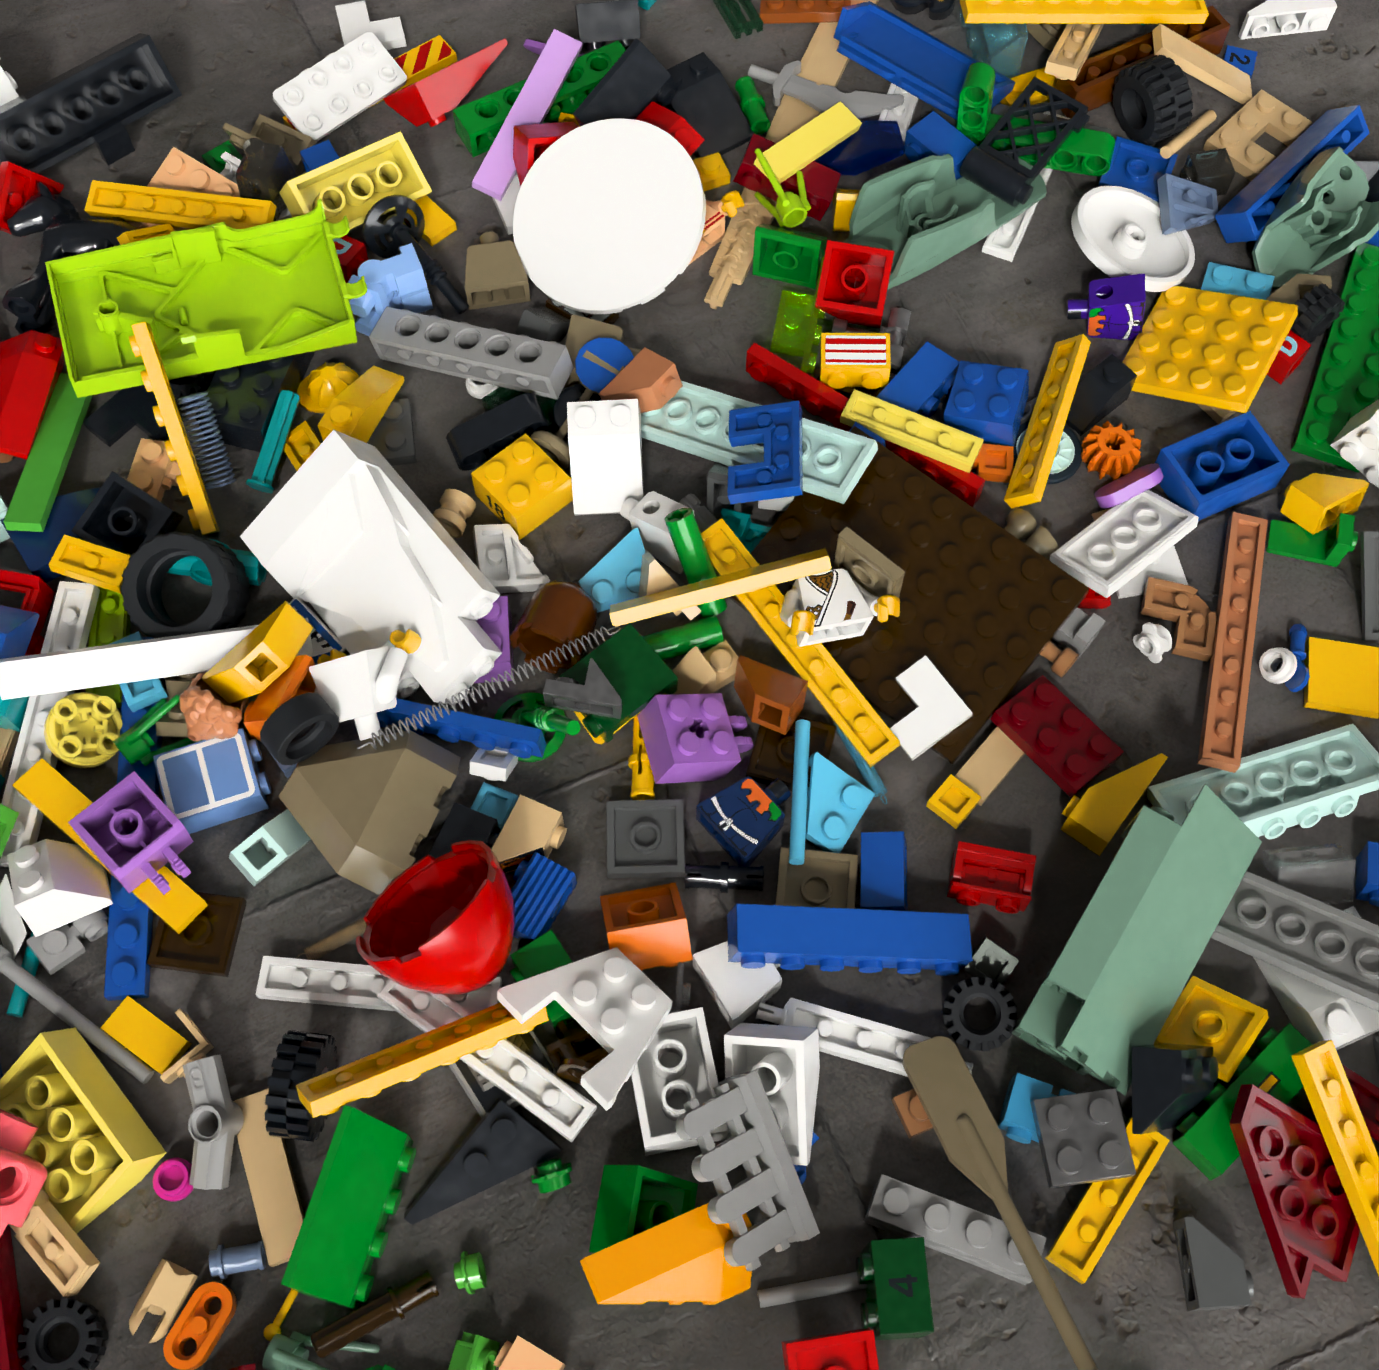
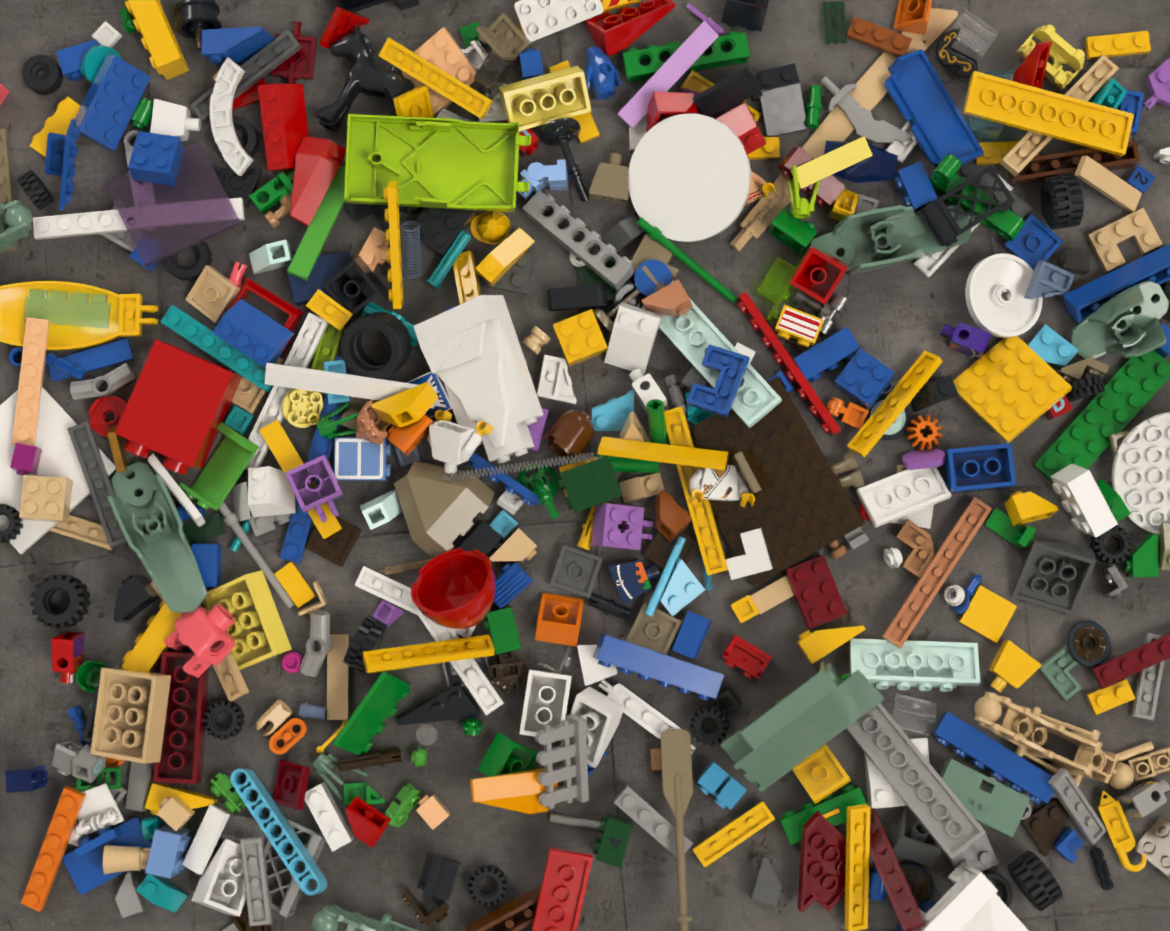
camera: 20 degrees right, 20 degrees up
(299, 728) = (414, 459): black tyre -> none
(334, 1021) = (387, 612): none -> medium lavender slope
(432, 149) = (600, 74): none -> blue animal
(471, 1224) = (426, 734): none -> clear plate
(586, 308) = (655, 234): none -> green bar
(594, 697) = (574, 495): flat silver slope -> none
(609, 1001) = (527, 661): white wing -> none
(912, 430) = (811, 384): light yellow tile -> none
(1082, 1138) = (731, 805): flat silver plate -> none
(1169, 1083) = (784, 793): black slope -> none
(1188, 134) = (1075, 229): tan bar -> none

